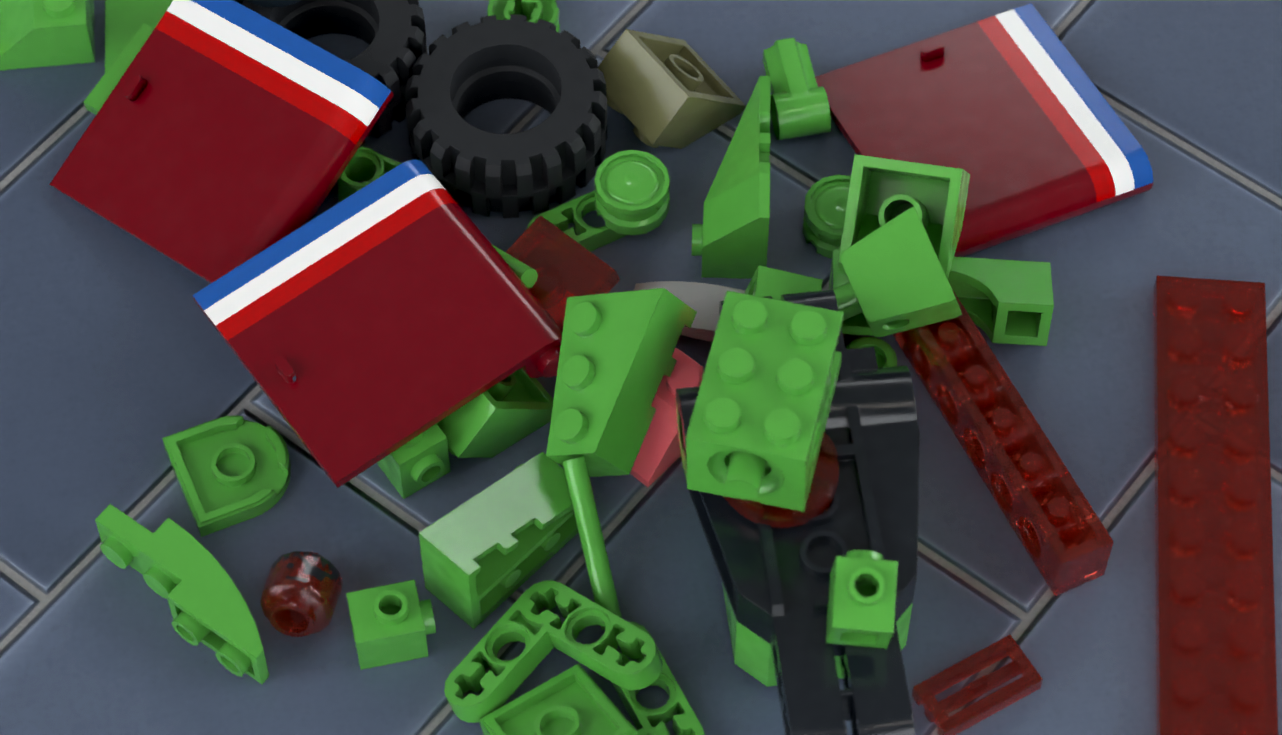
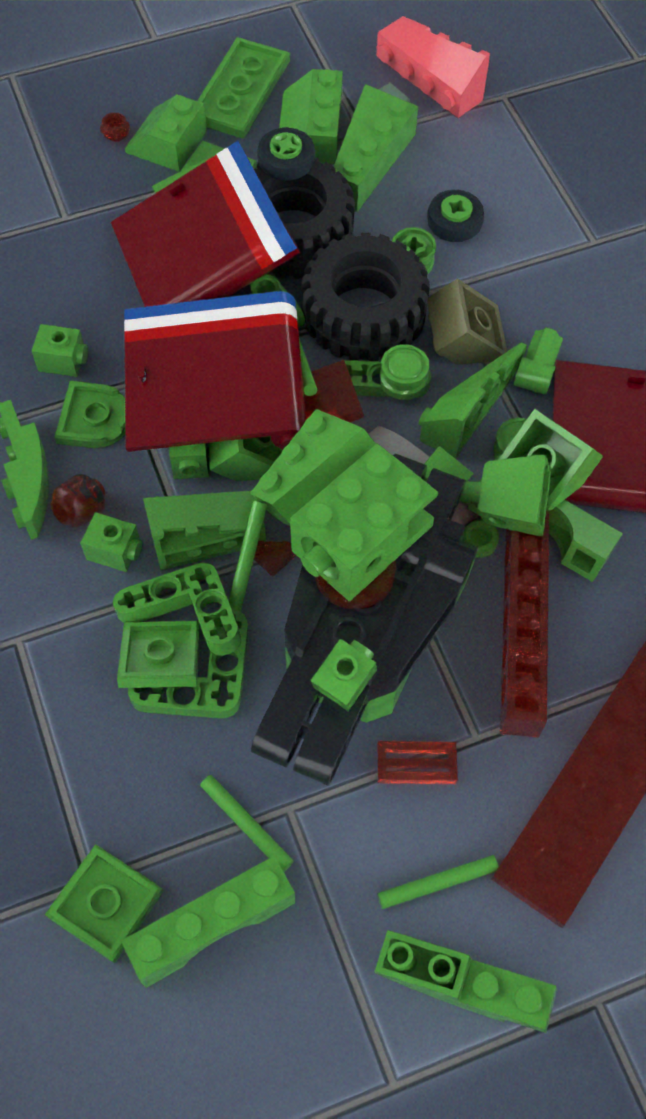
camera: 30 degrees right, 5 degrees up
(120, 402) = (59, 350): none -> bright green brick
(620, 526) = (273, 555): none -> clear red tile

